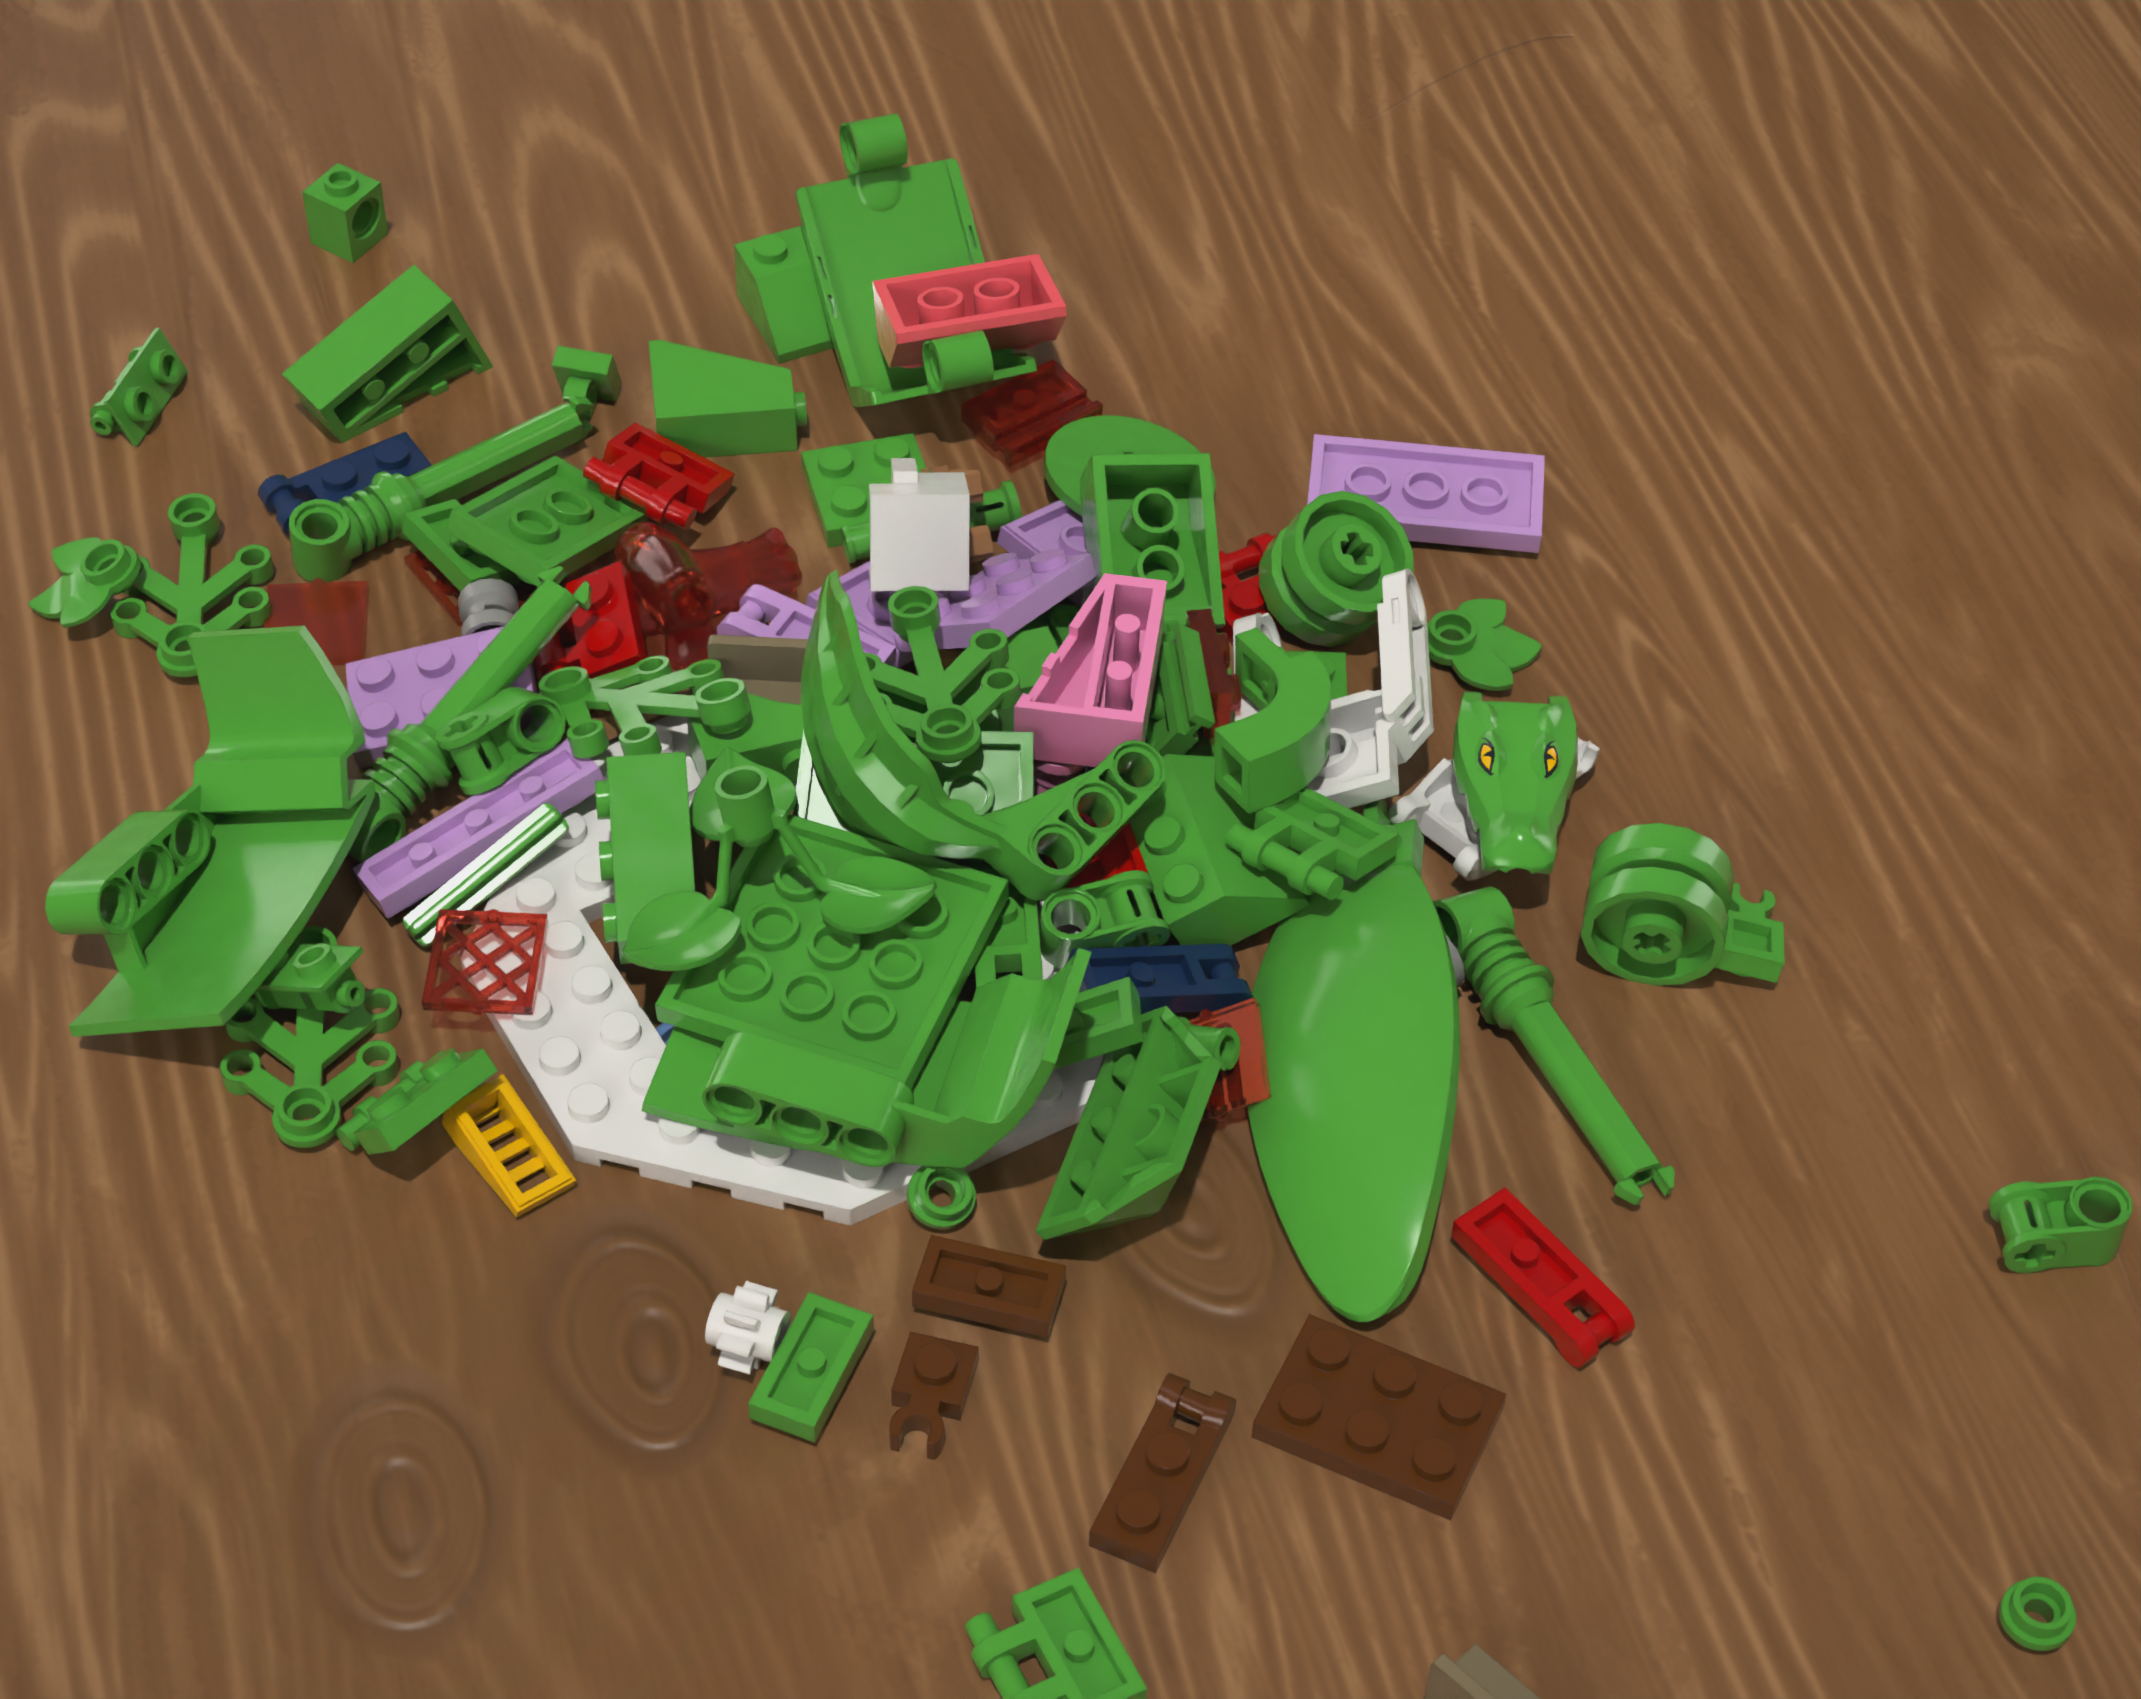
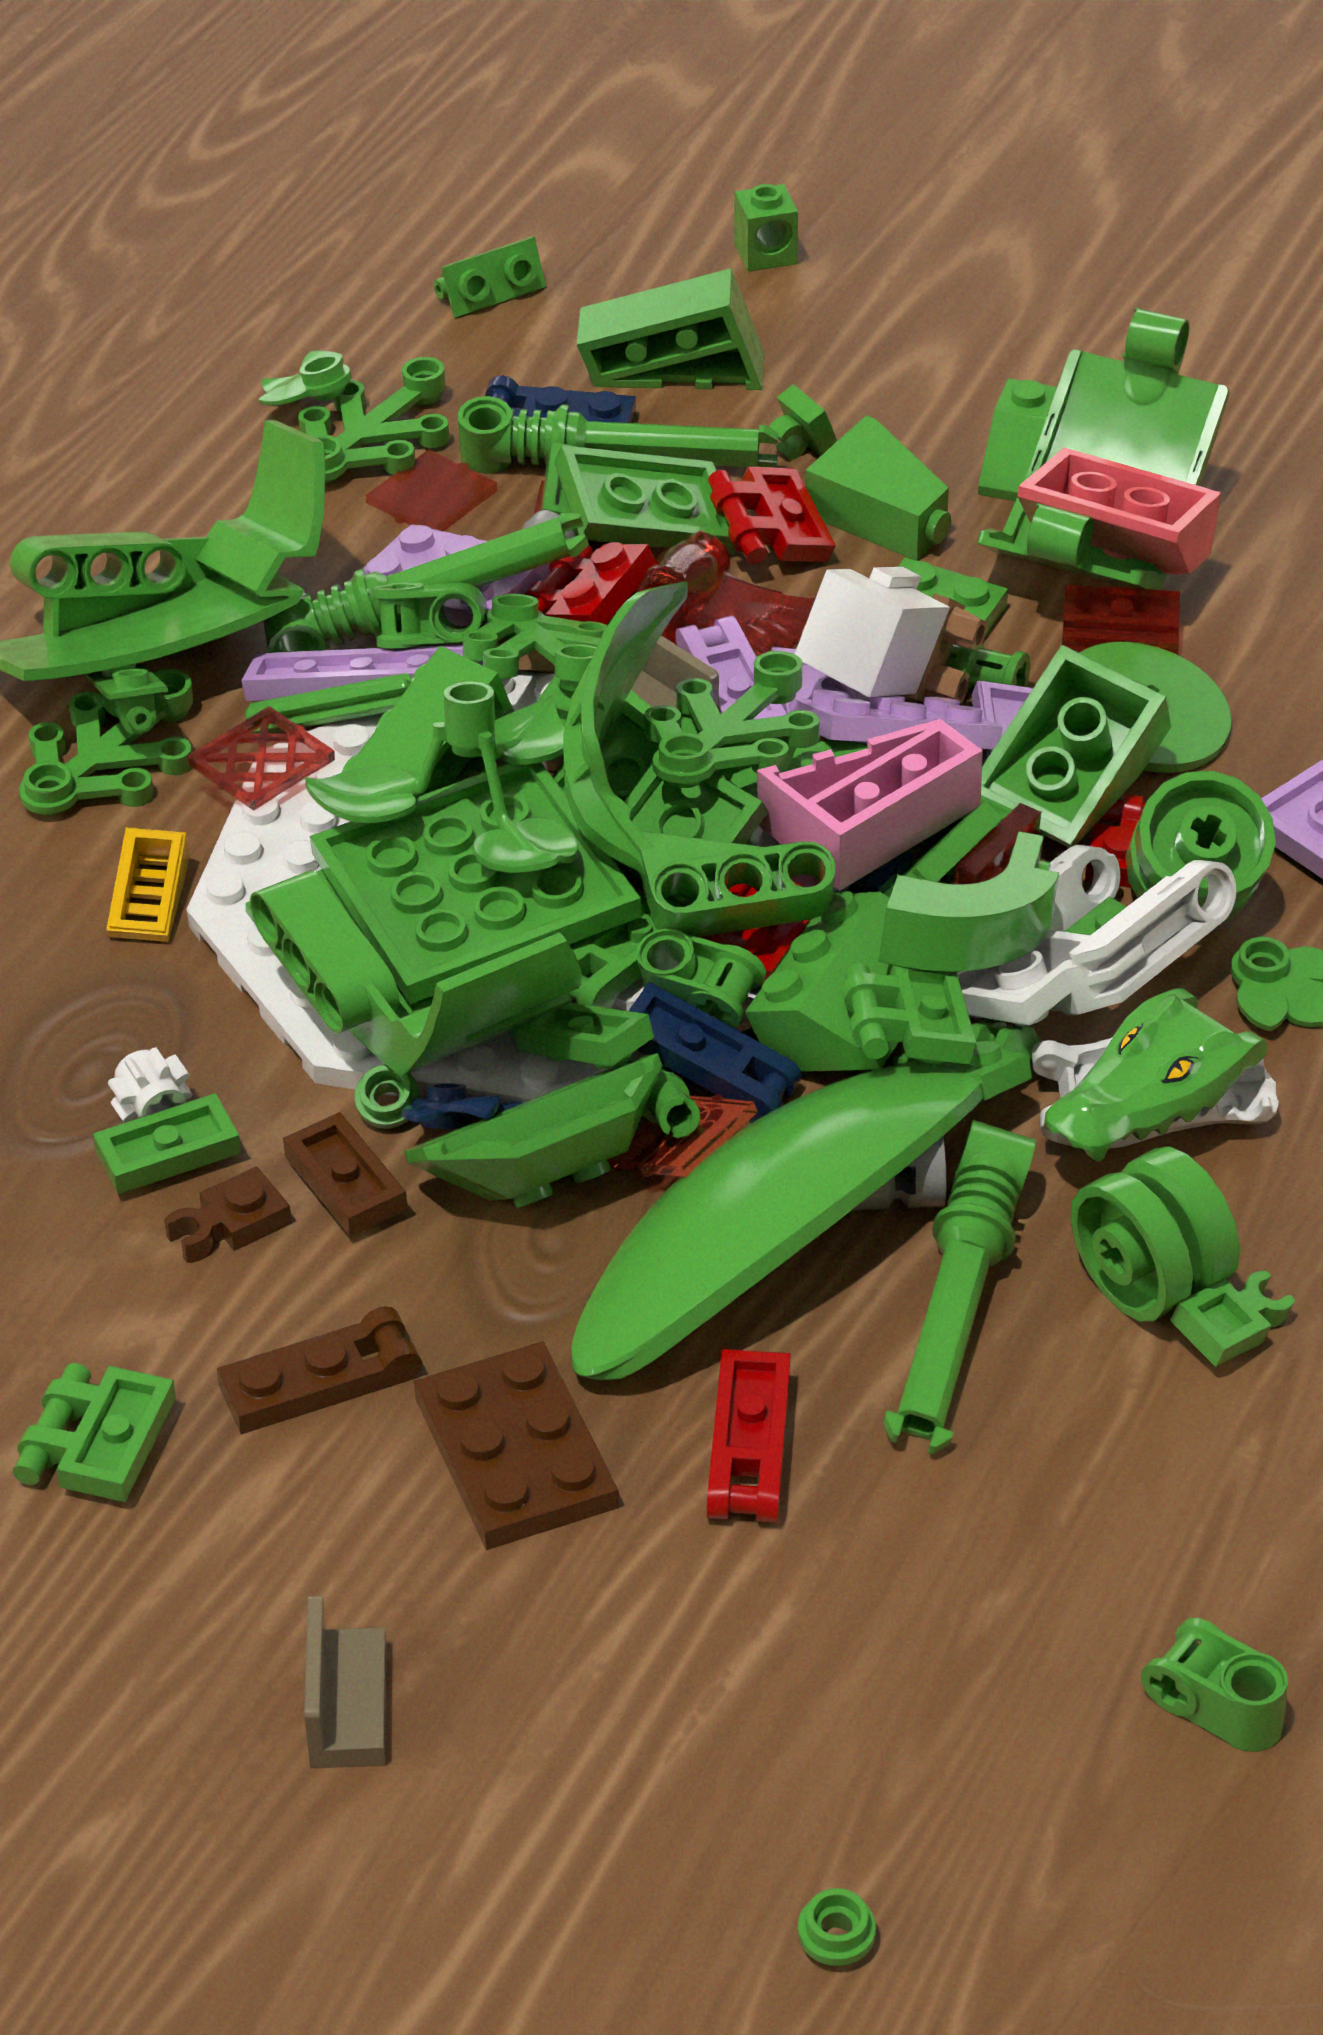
camera: 45 degrees right, 5 degrees down
(415, 1101) = (87, 815): bright green plate -> none
(1013, 1170) = (450, 1108): none -> dark blue plate

